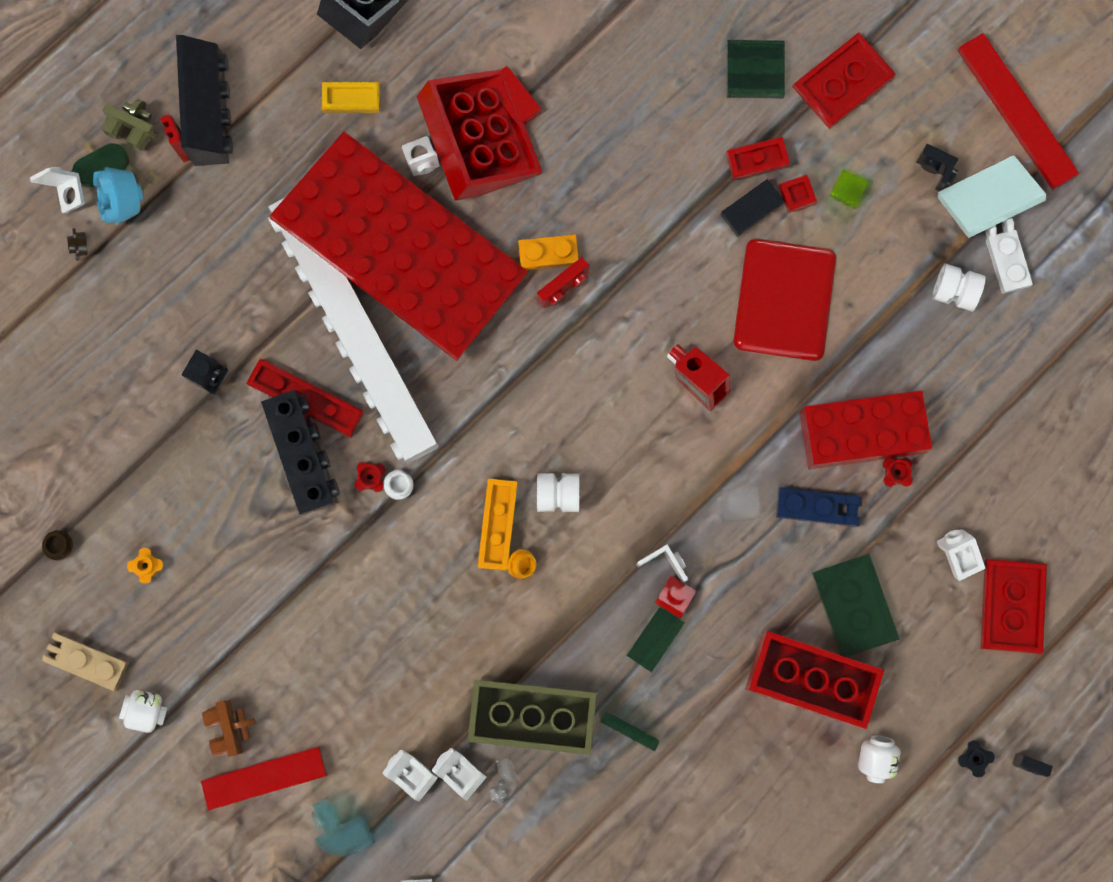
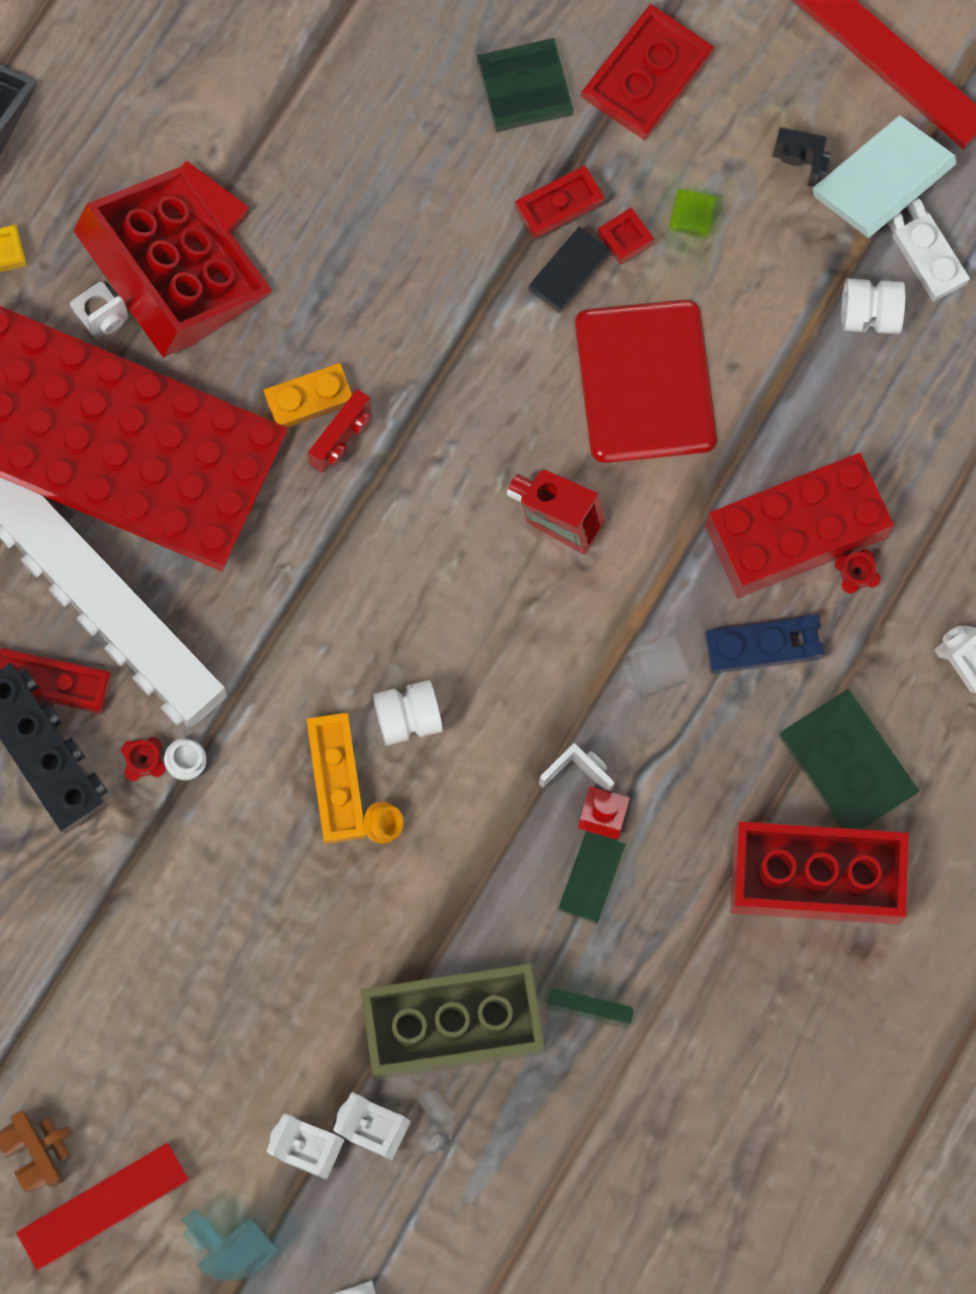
camera: 20 degrees left, 5 degrees down
(879, 759) = (934, 957): white head -> none

